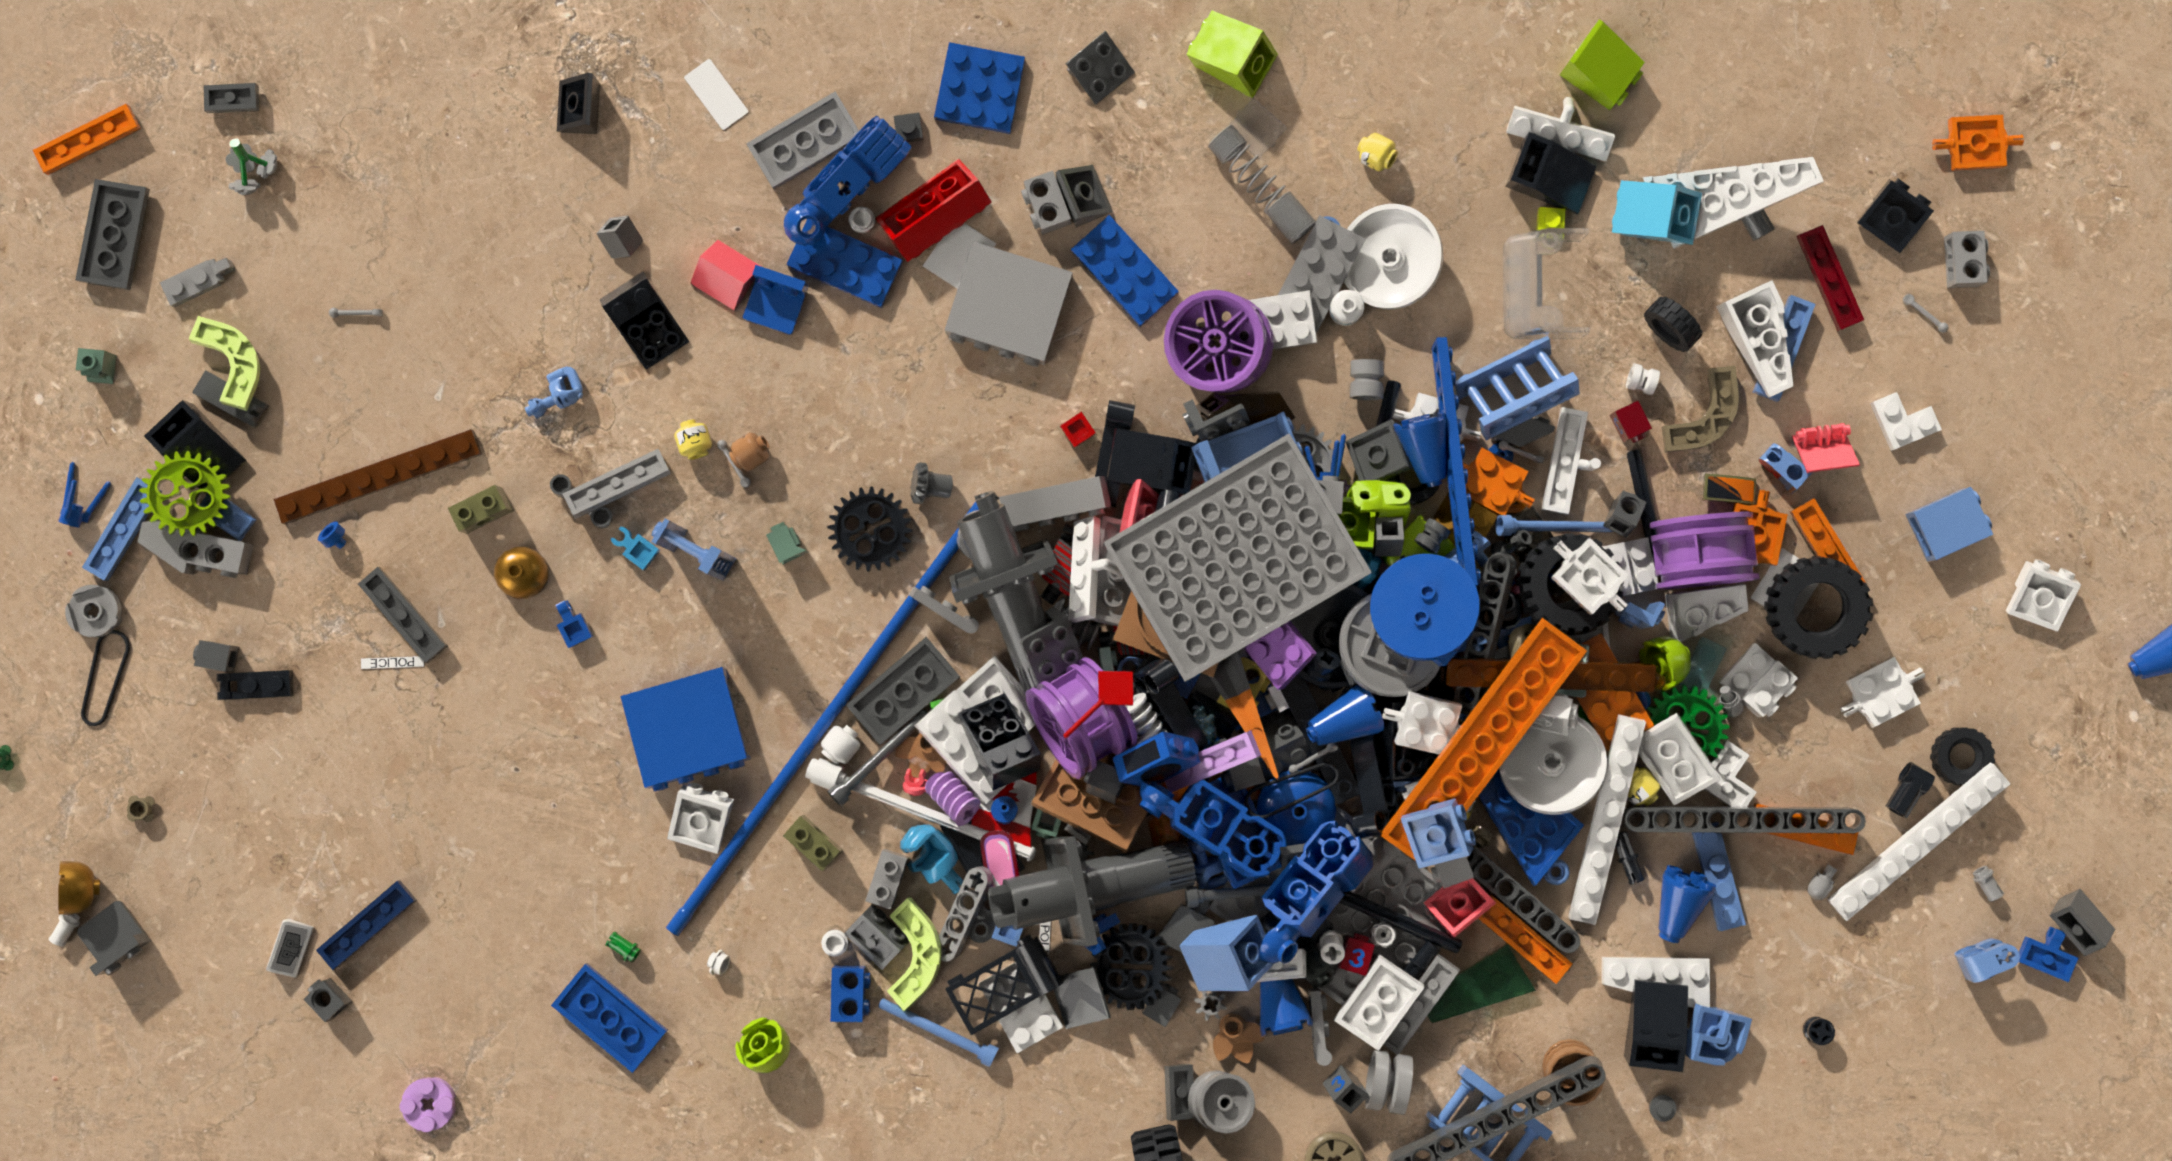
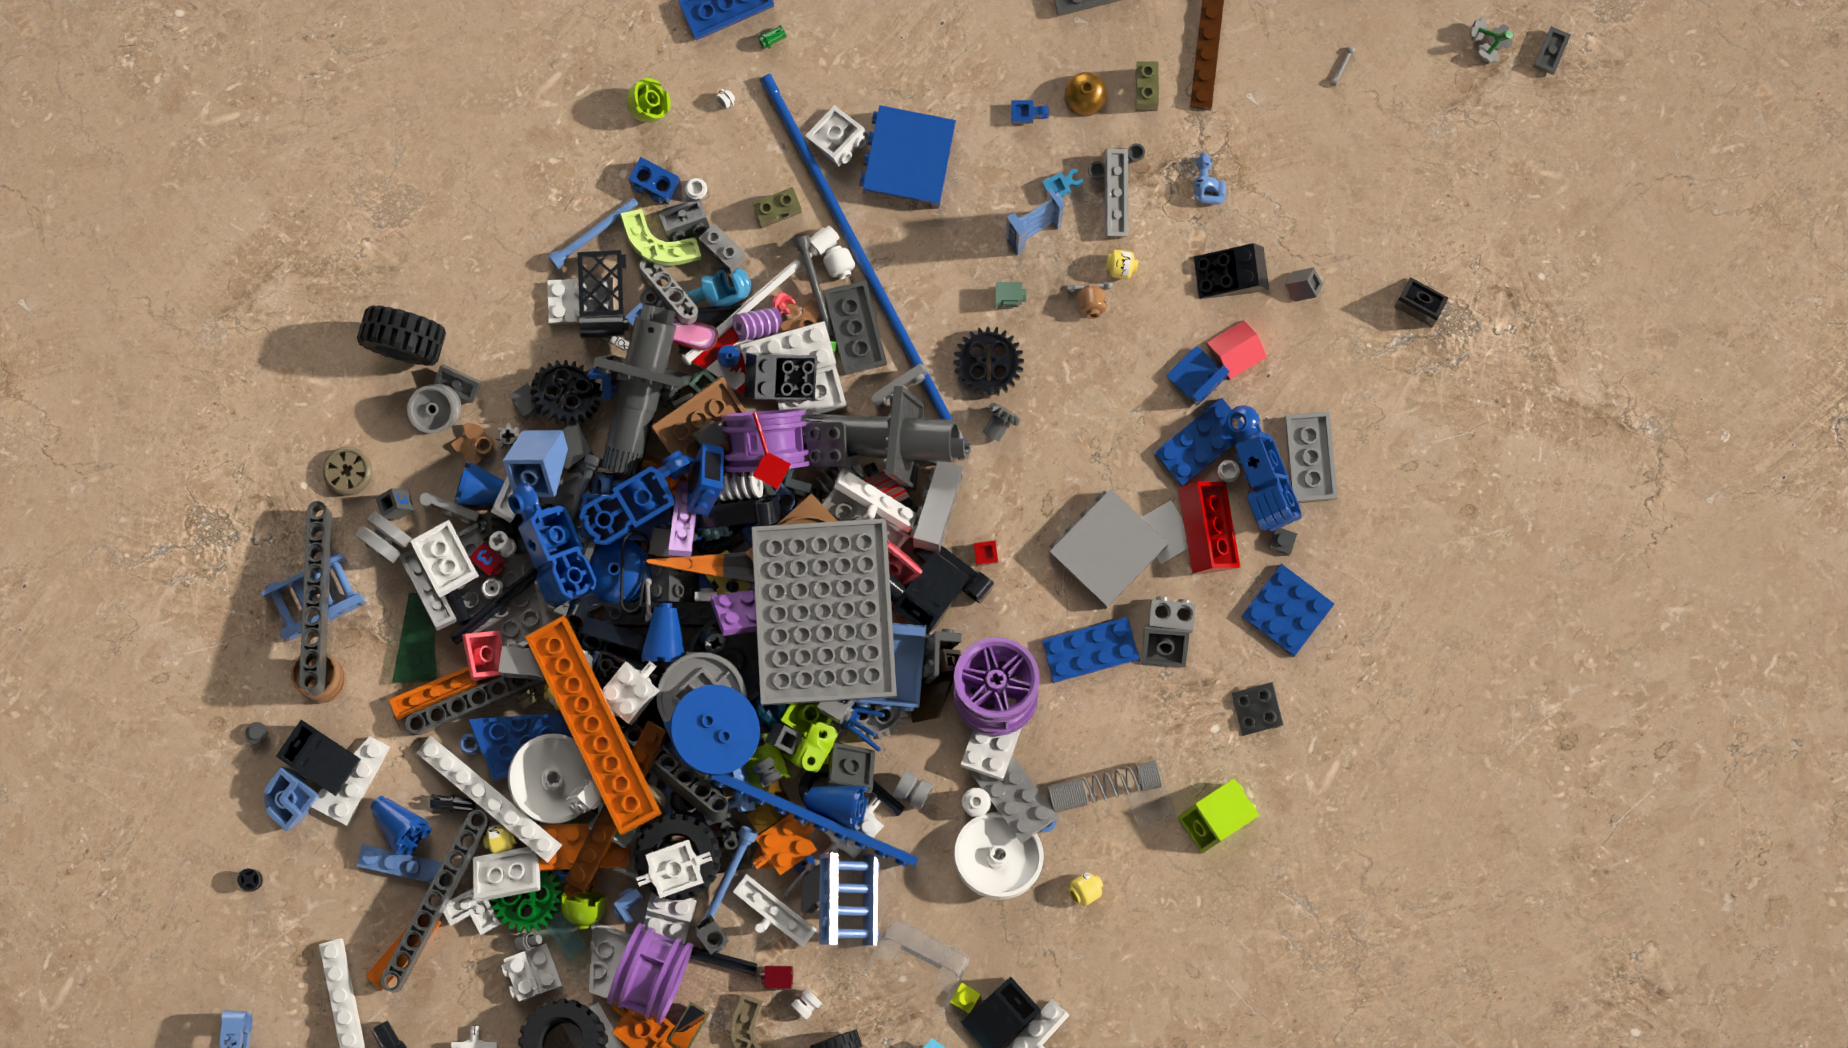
camera: 120 degrees right, 5 degrees down
(716, 94) = (1381, 409): white sticker -> none
(1081, 998) = (562, 345): piece -> none
(1438, 833) = (543, 656): medium blue plate -> none
(1822, 884) = (356, 941): light grey cylinder -> none

